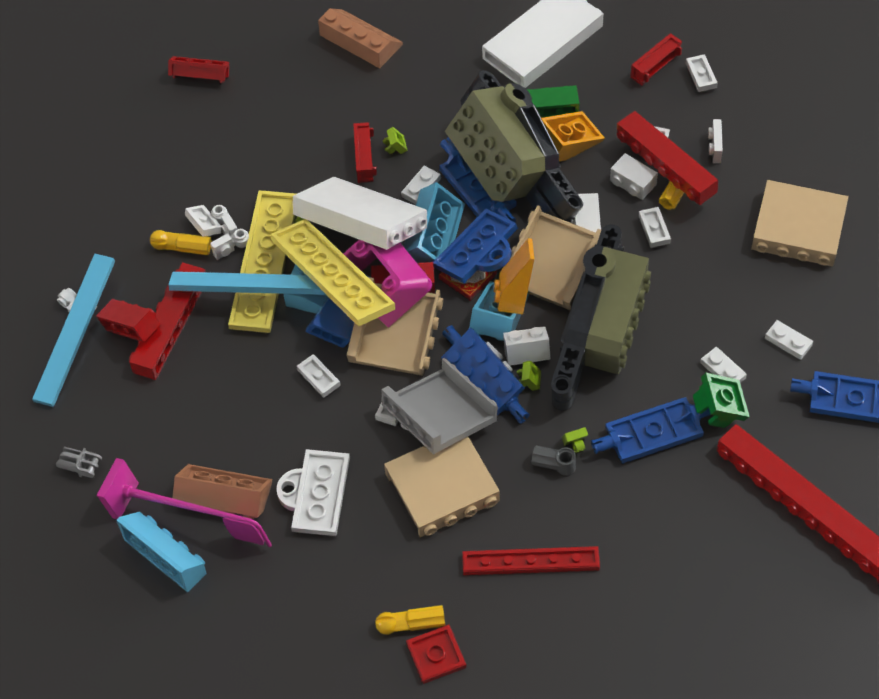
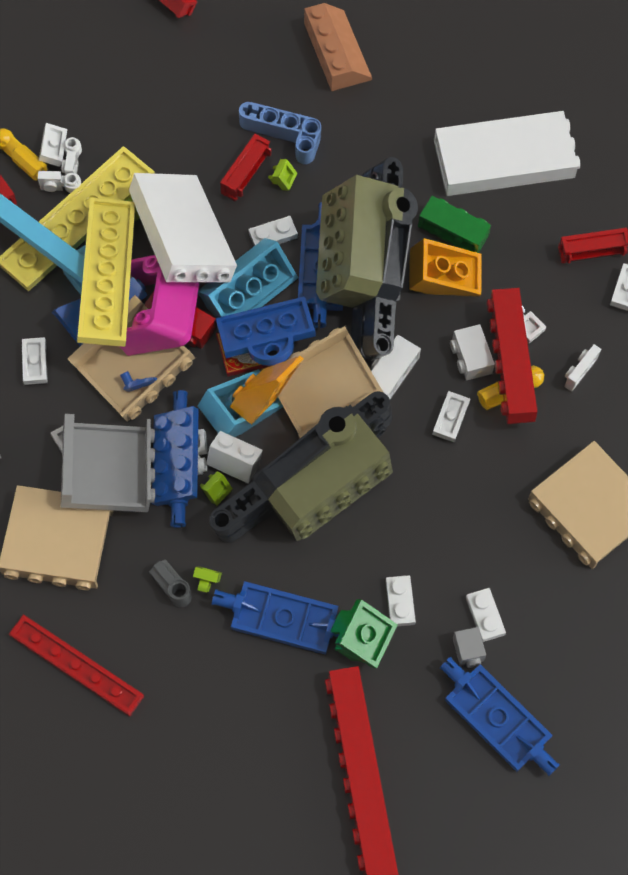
camera: 30 degrees right, 10 degrees up
(368, 108) = (255, 117): none -> medium blue beam
(409, 345) = (131, 385): none -> blue bar
(797, 364) = (469, 647): none -> light grey brick

